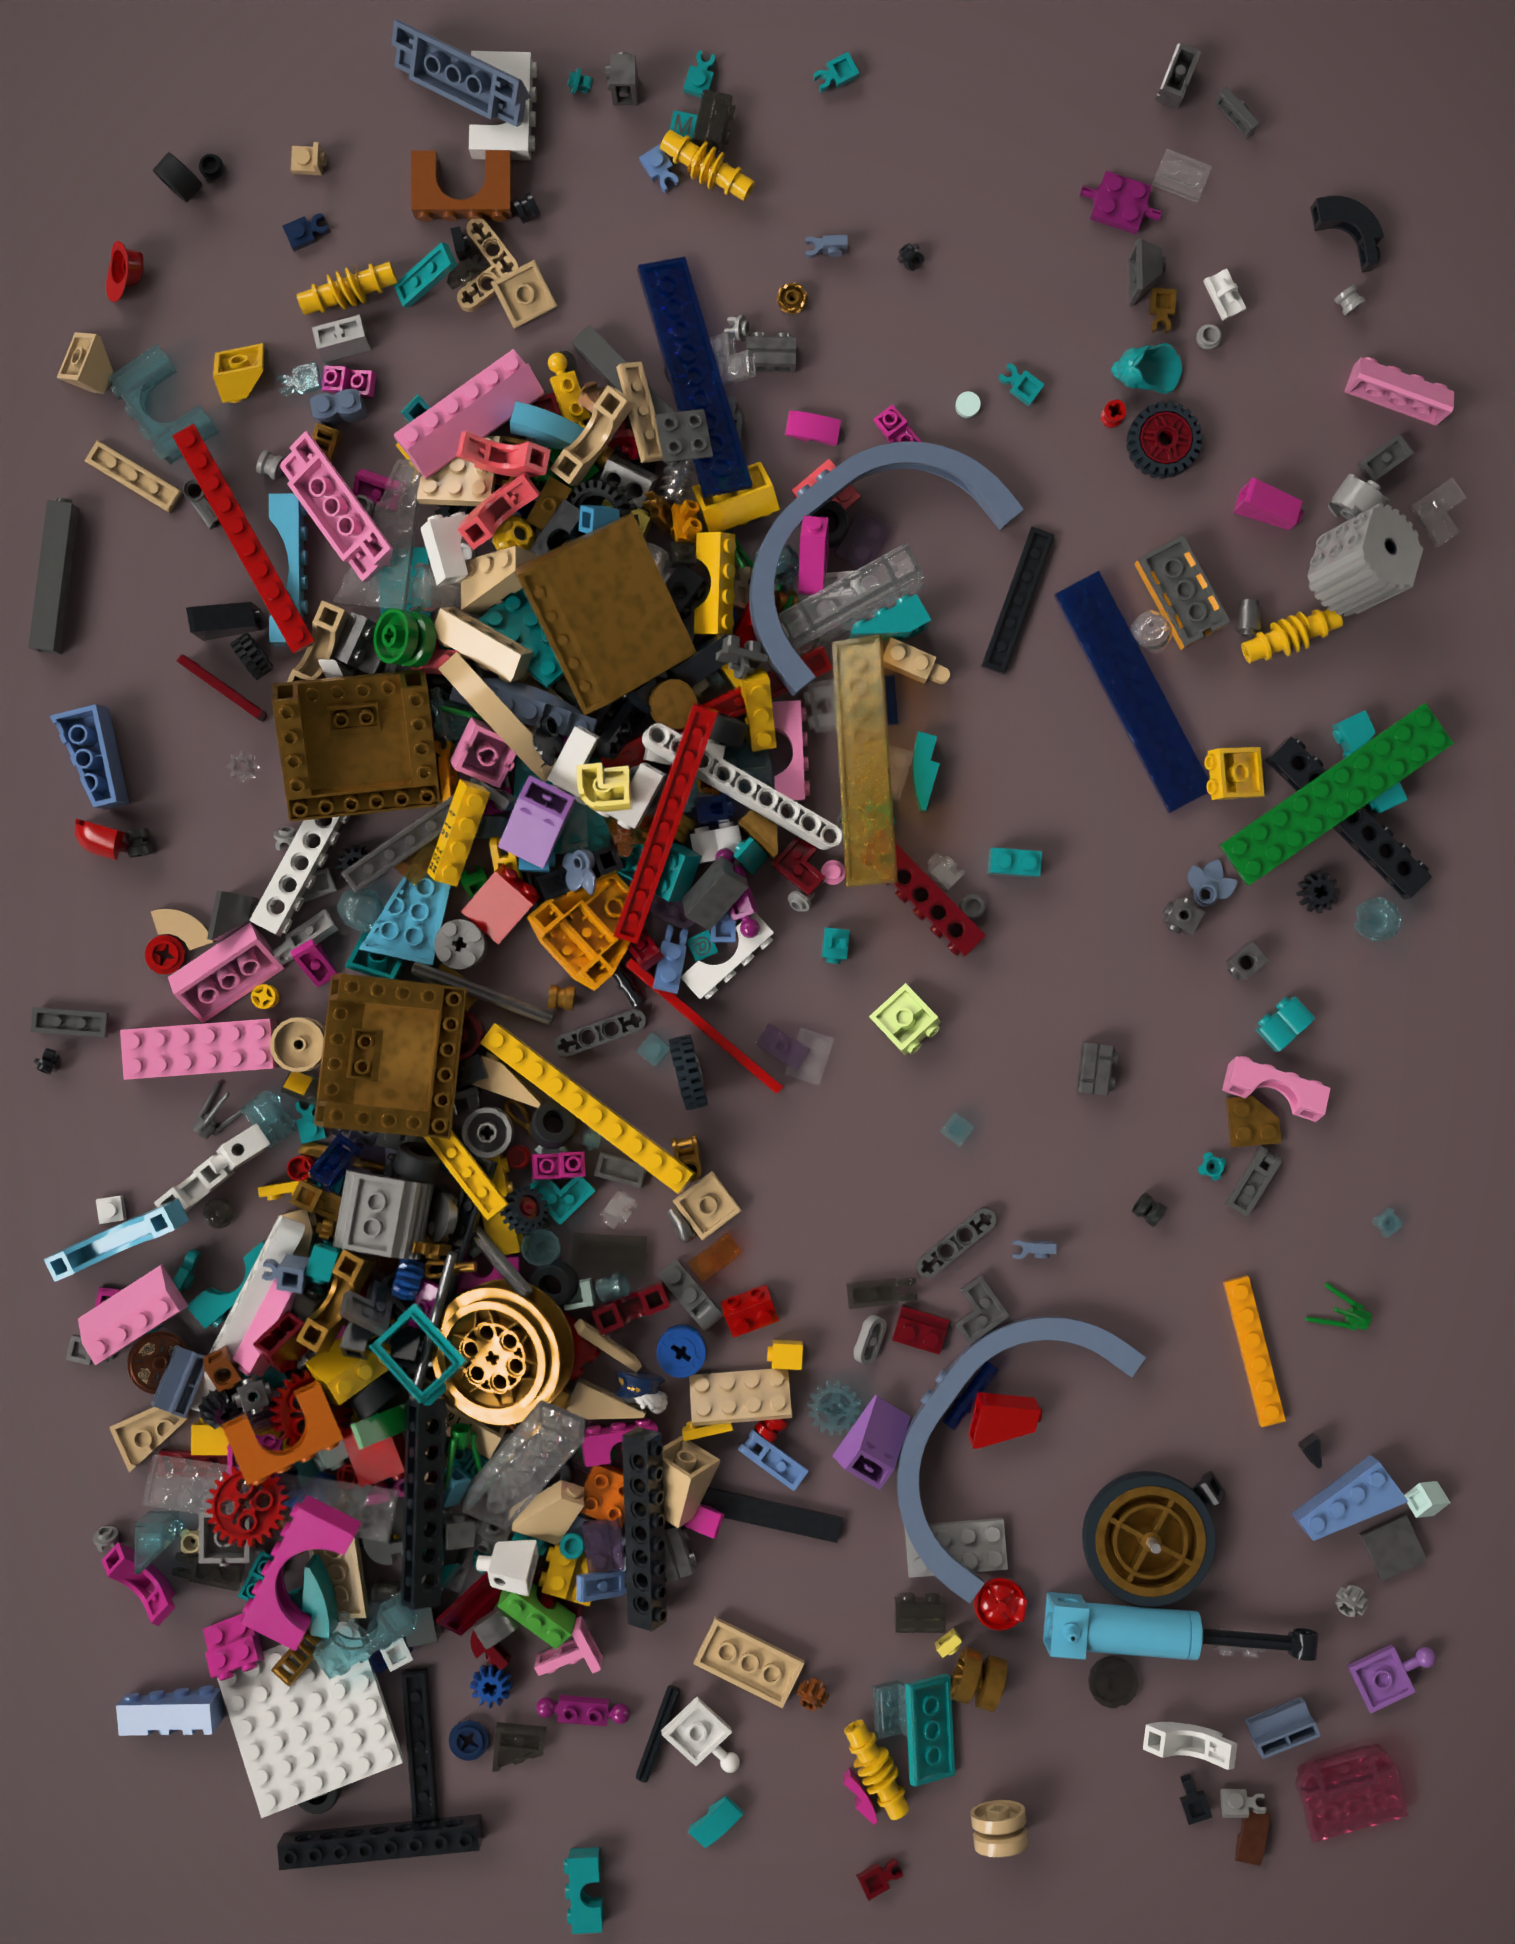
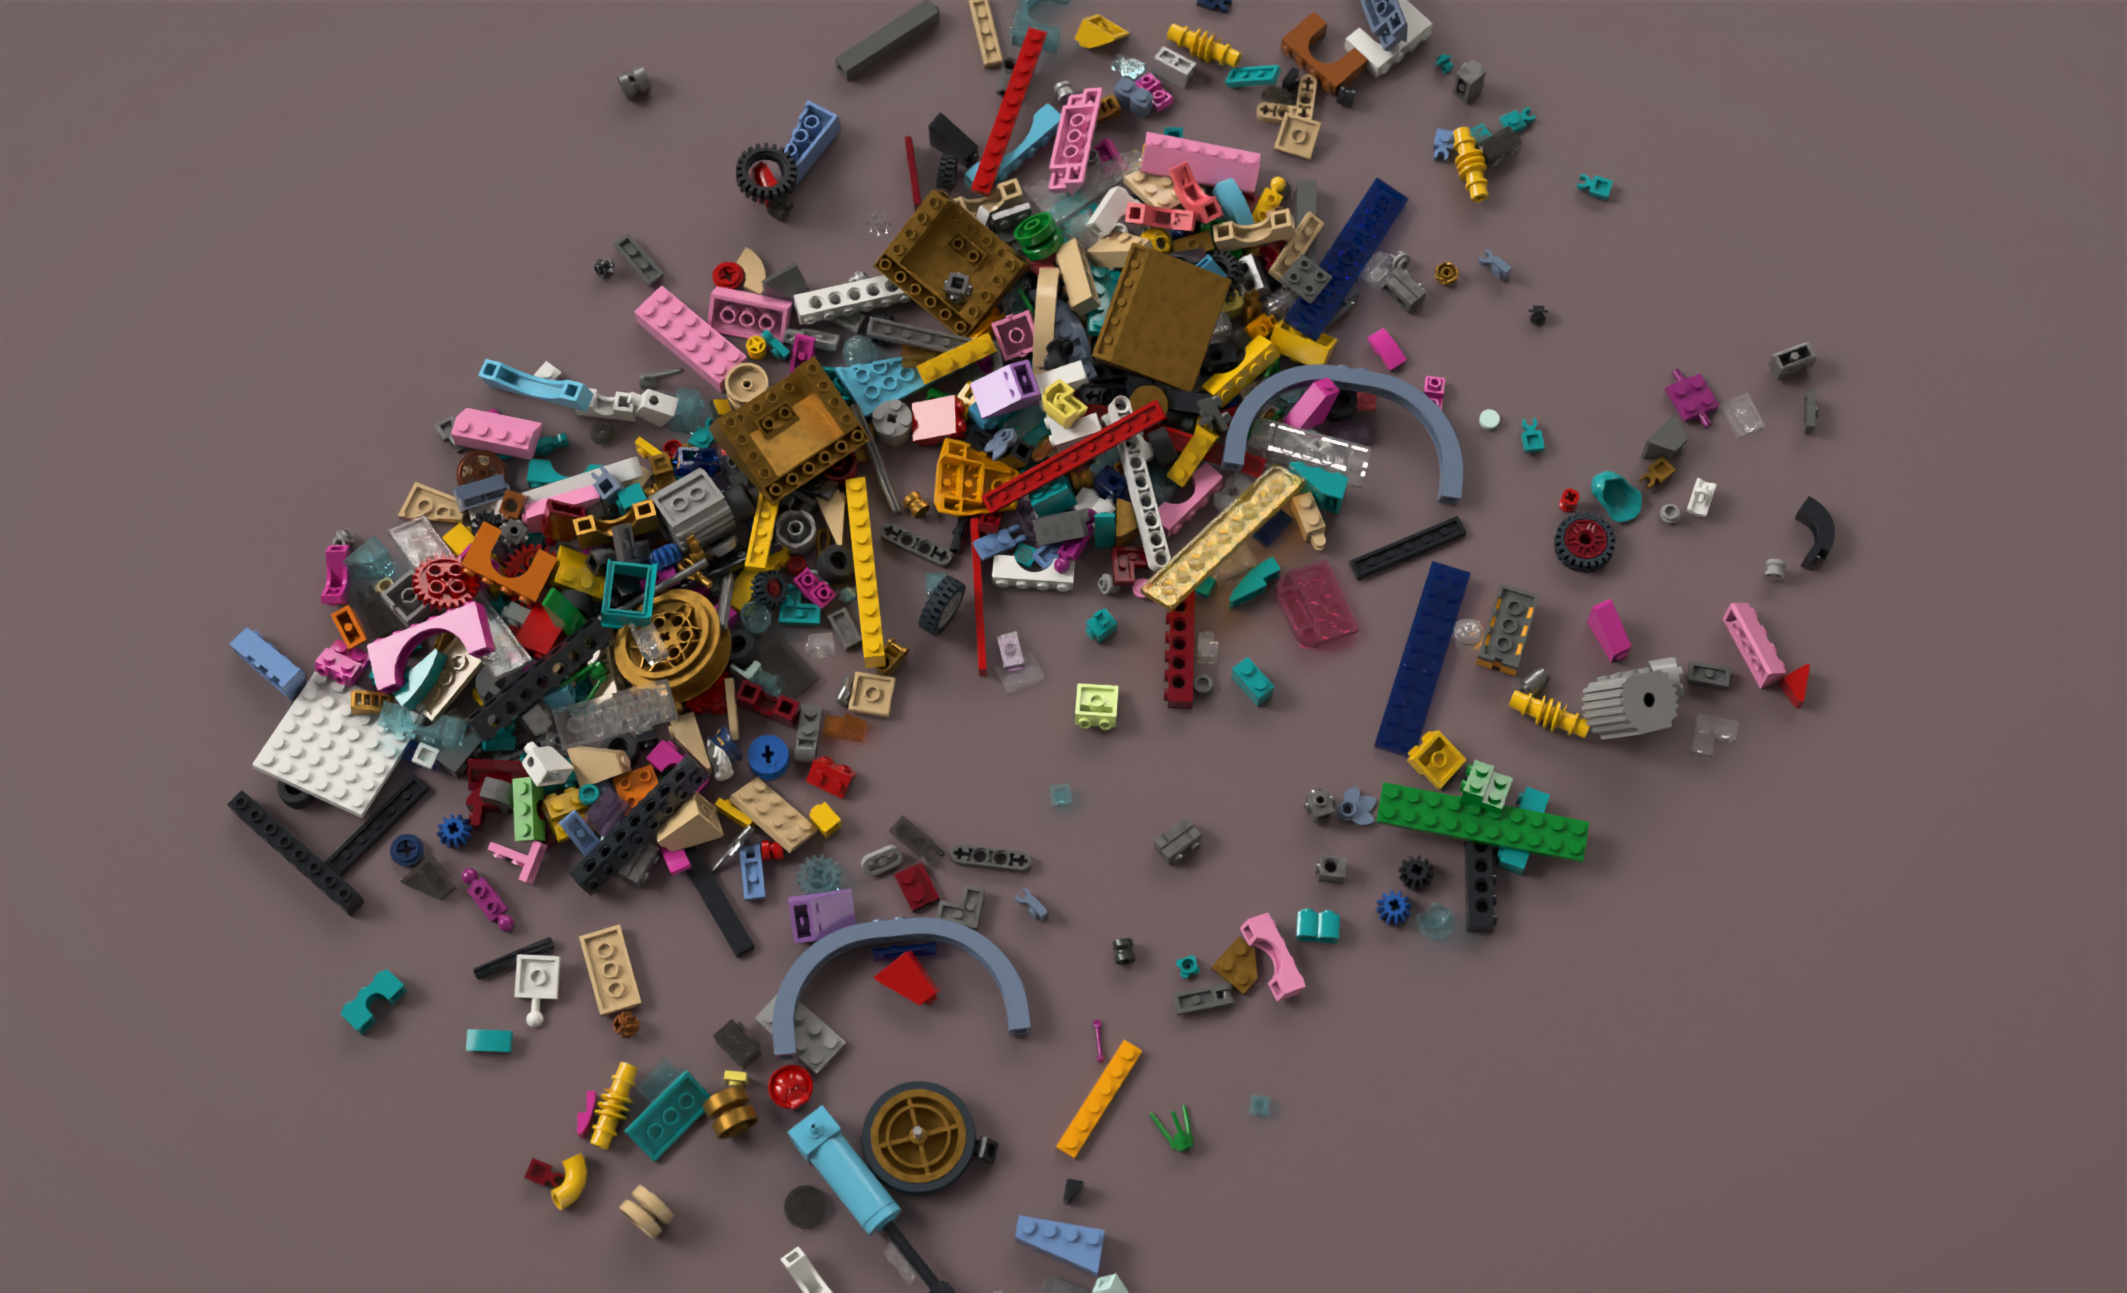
camera: 50 degrees right, 20 degrees down
(75, 811) = (766, 193): none -> black tyre
(204, 1613) = (349, 626): none -> orange slope
(287, 979) = (778, 348): none -> teal plate
(378, 760) = (957, 287): none -> flat silver brick
(487, 1382) = (650, 643): none -> clear panel
(739, 1454) = (734, 846): none -> flat silver piece
(910, 1858) = (573, 1184): none -> yellow cylinder
(995, 737) = (1314, 605): none -> clear pink plate
(1187, 1290) = (1097, 1024): none -> magenta hinge
(1312, 762) = (1485, 787): none -> plate
(1338, 949) = (1385, 905): none -> blue gear
(1469, 392) = (1795, 685): none -> red slope

